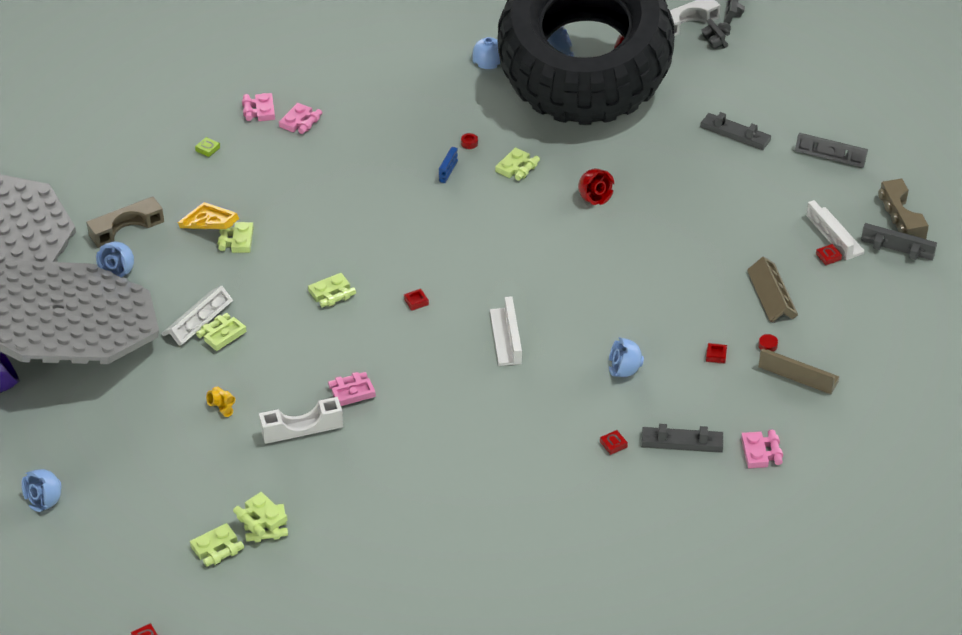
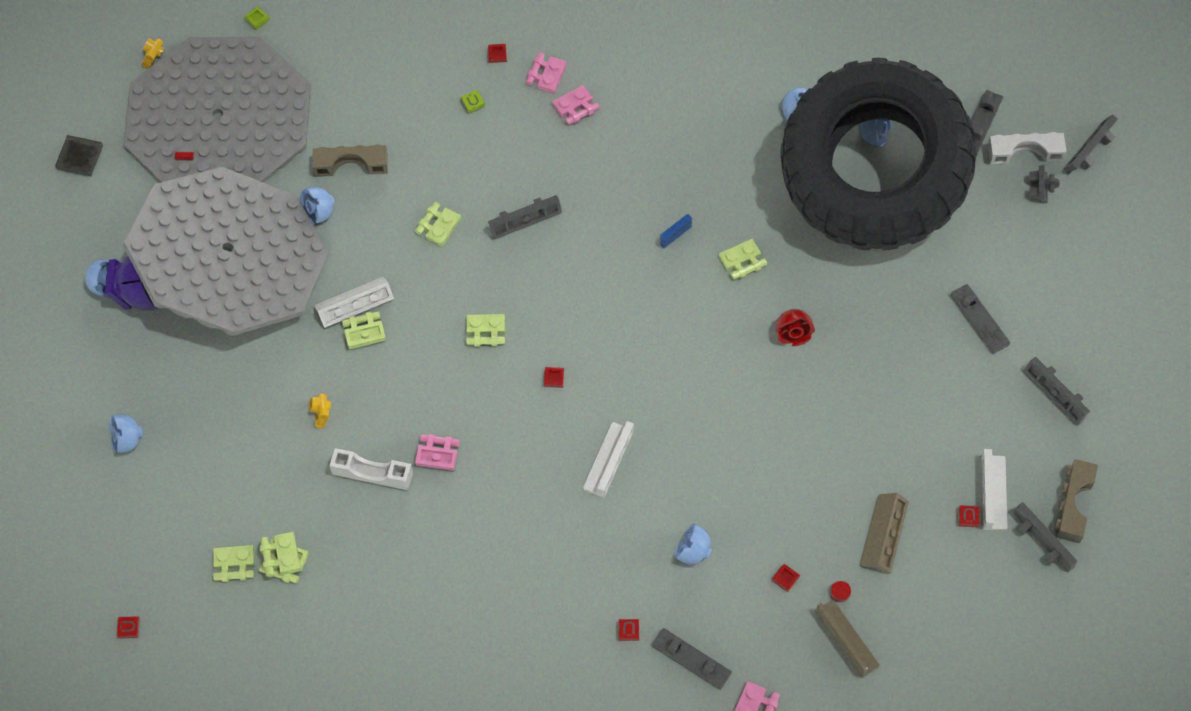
camera: 30 degrees right, 20 degrees up
(206, 109) = (497, 53): none -> red tile
(209, 217) = (422, 193): yellow wing -> none
(311, 202) = (525, 216): none -> dark grey hinge
(469, 141) = (716, 208): red tile -> none

